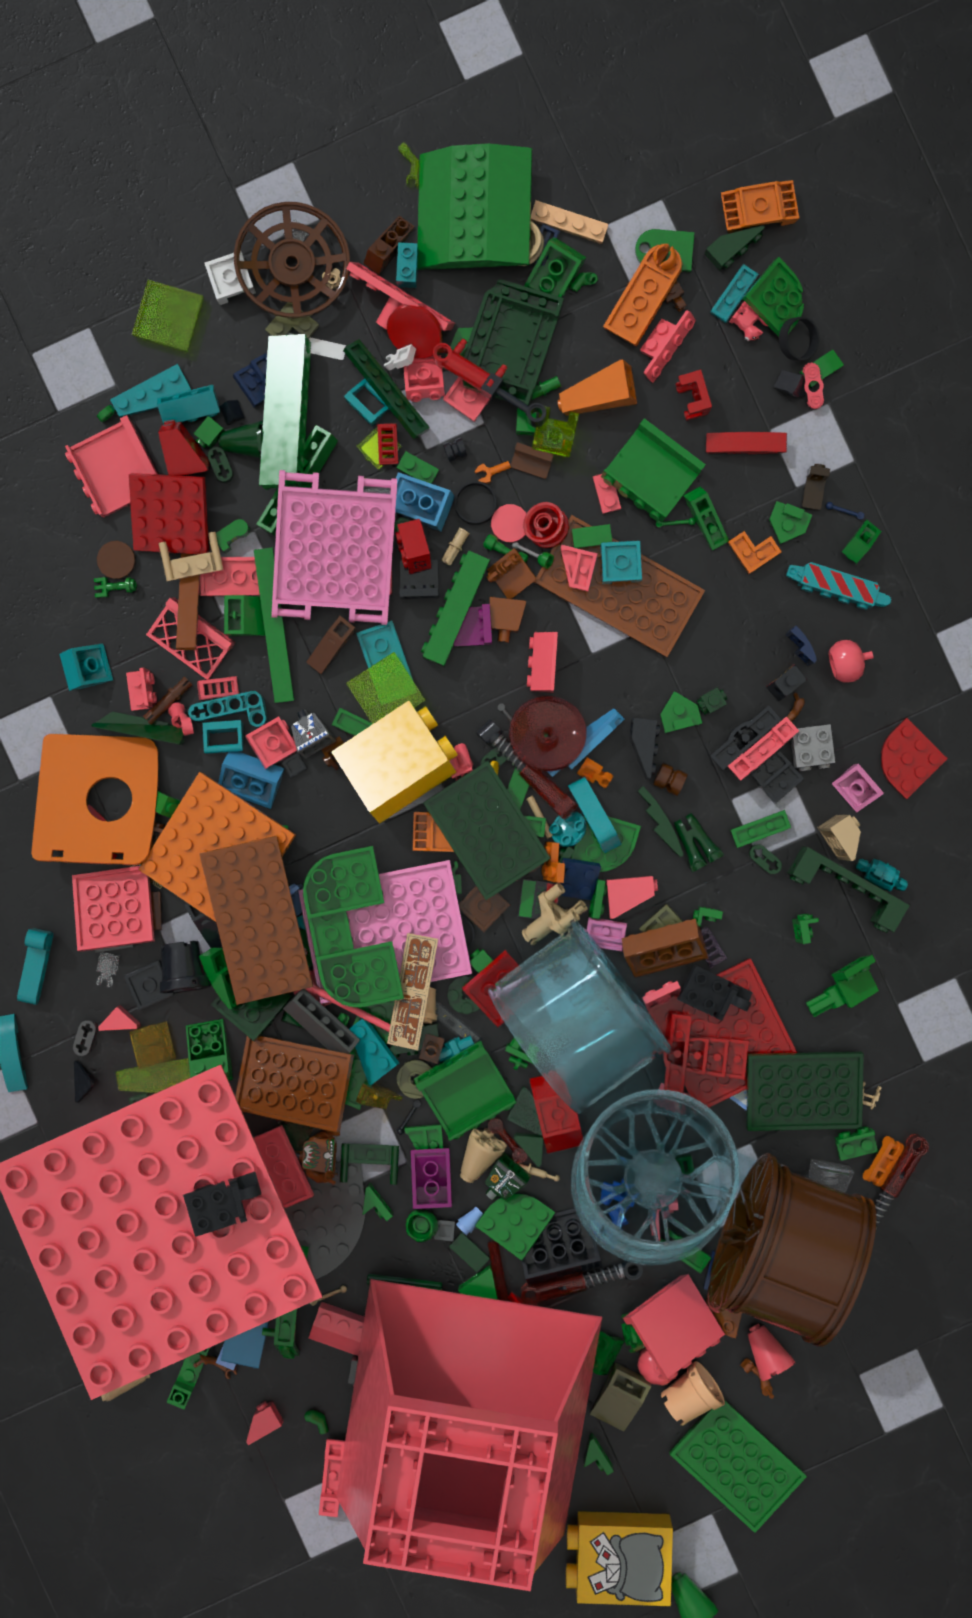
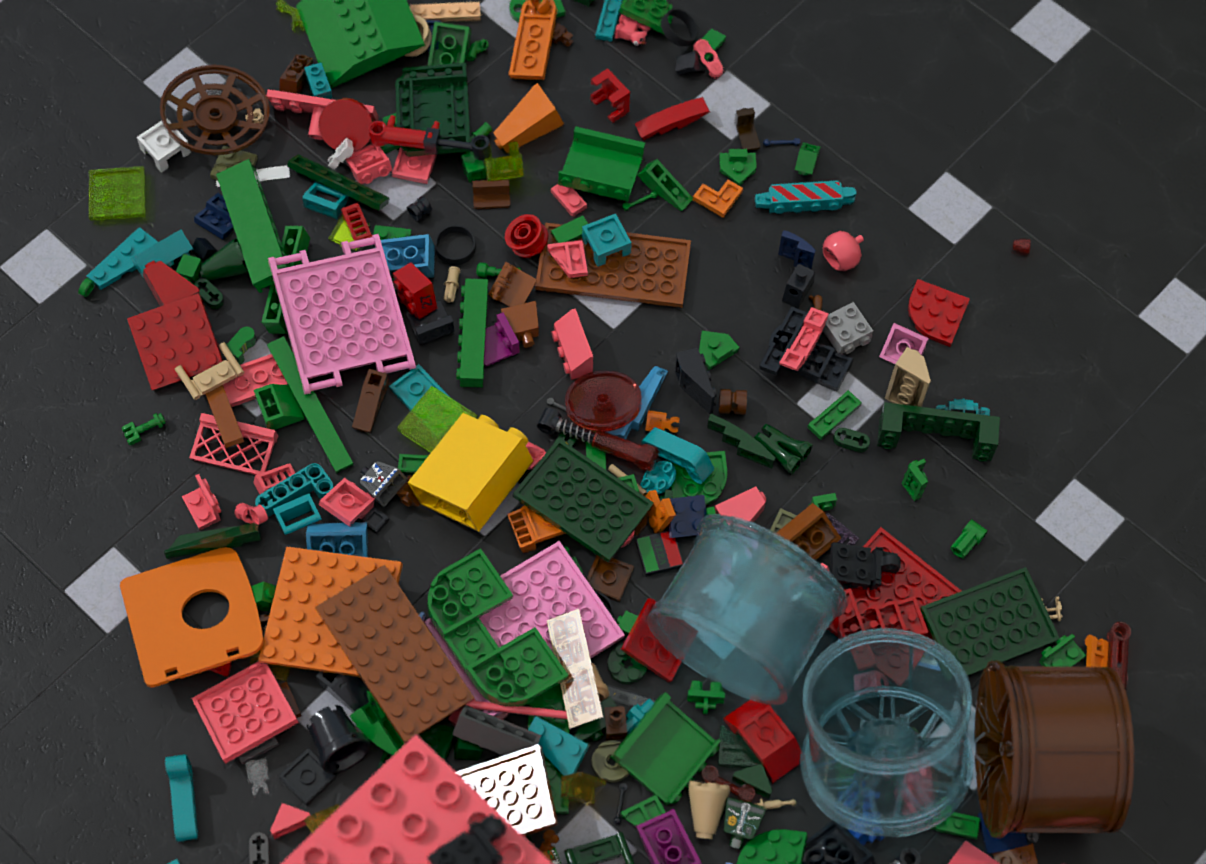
camera: 30 degrees left, 25 degrees down
(86, 666) = (139, 504): teal slope -> none
(106, 463) = (103, 329): coral panel -> none
(116, 560) = (138, 405): reddish brown tile -> none
(173, 695) = (235, 498): reddish brown pin -> none
(491, 471) = (458, 216): orange bar -> none
(508, 523) = (493, 250): coral tile -> none
(544, 559) = (537, 262): green hinge -> none
(552, 916) = (675, 554): tan wheel -> none
(664, 342) = (567, 69): coral bracket -> none
(712, 701) = (739, 325): dark green brick -> none
(856, 981) = (985, 509): green bracket -> none

